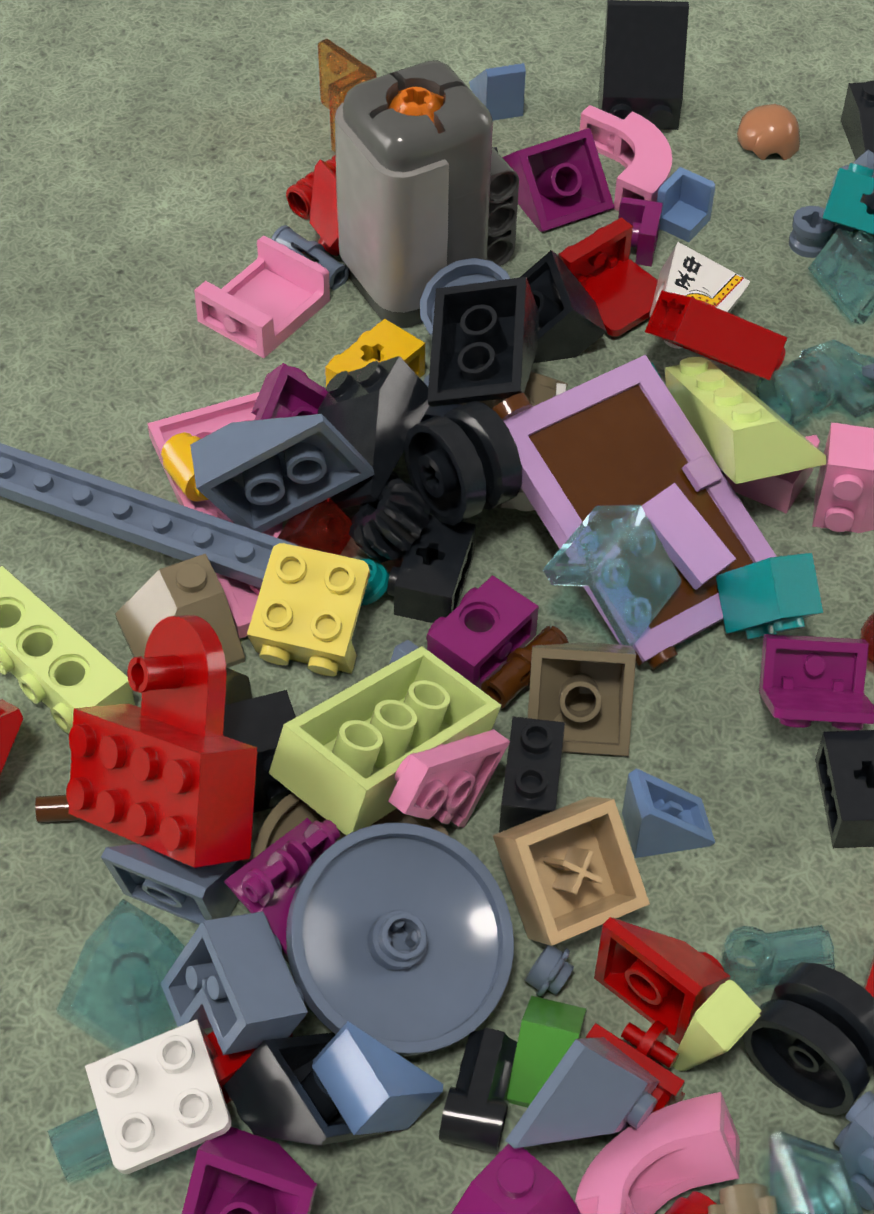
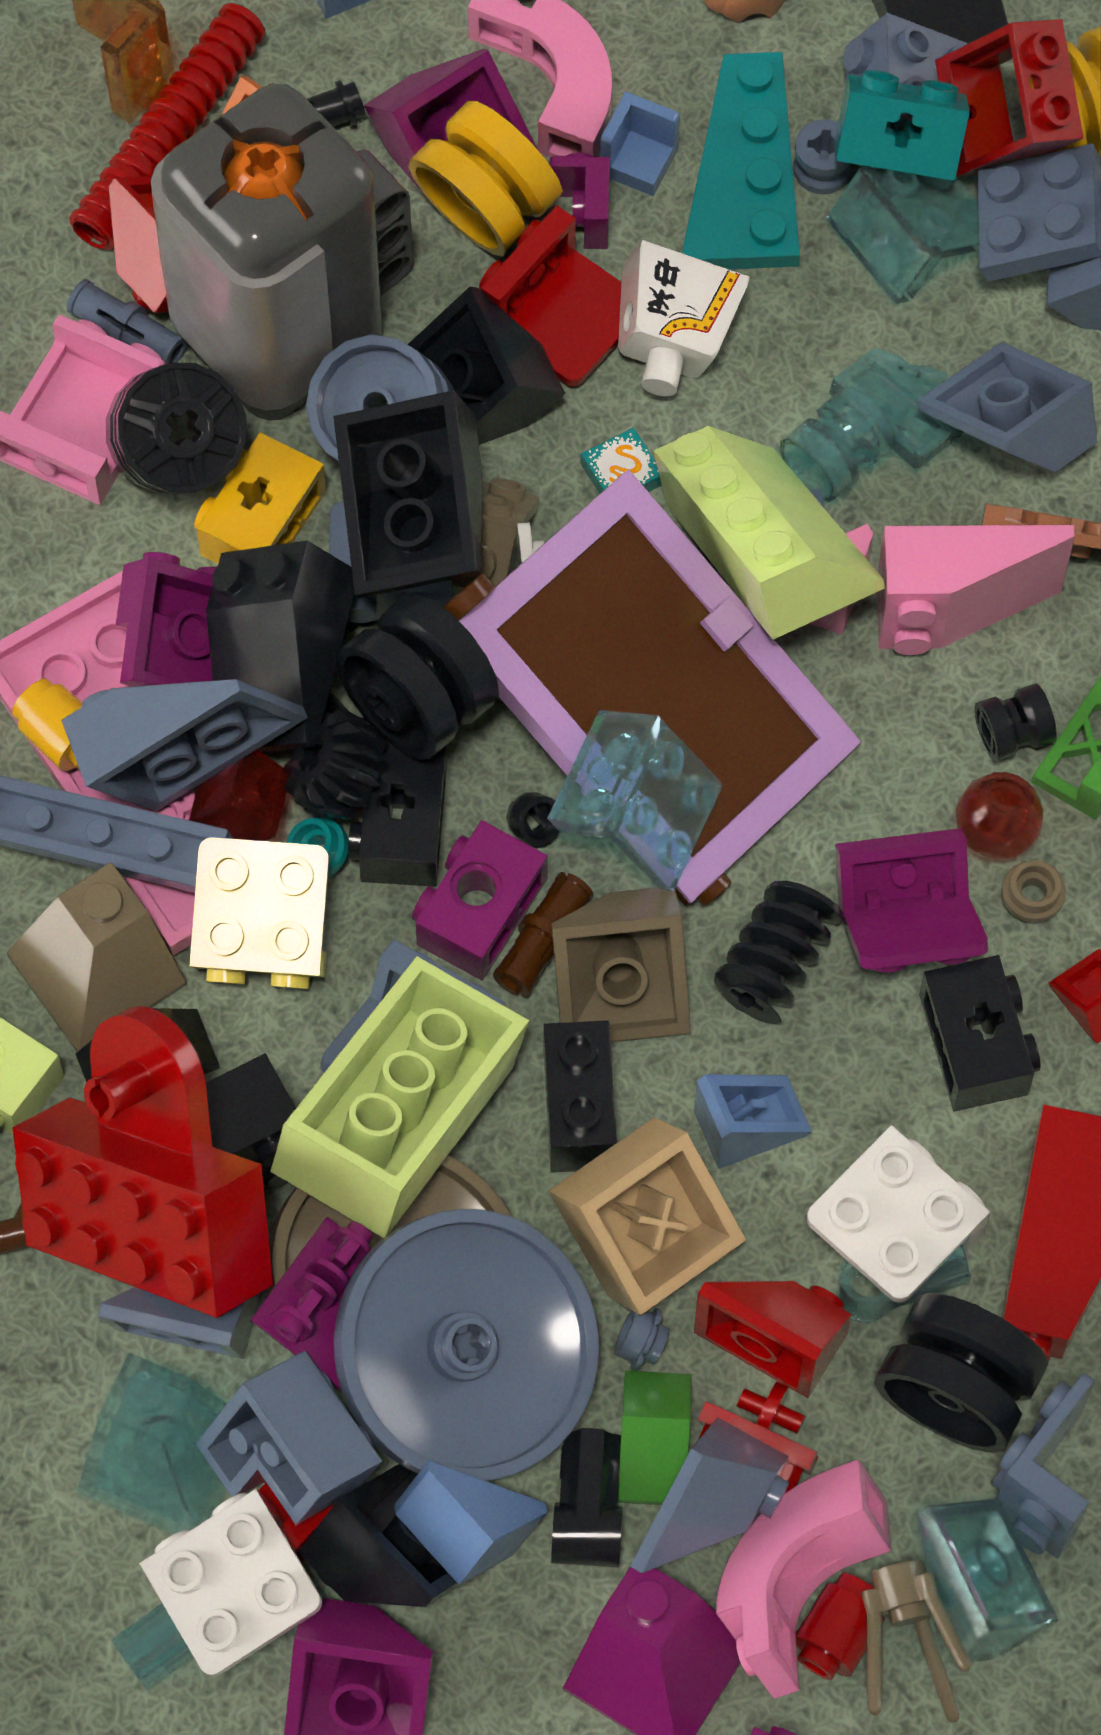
camera: 10 degrees left, 15 degrees up
(326, 327) = (140, 435): none -> black wheel
(448, 778) = (484, 1132): bright pink wing -> none
(537, 584) = (539, 808): none -> black hinge
(573, 195) = (485, 177): none -> yellow wheel
(687, 536) = (717, 723): lavender tile -> none
(707, 703) = (772, 947): none -> black piece
(716, 1026) = (846, 1385): yellowish green slope -> none
(717, 335) = (715, 394): red window -> none
(758, 232) = (745, 177): none -> teal wing
(769, 595) = (835, 792): teal brick -> none
(780, 906) = (898, 1215): none -> white bracket

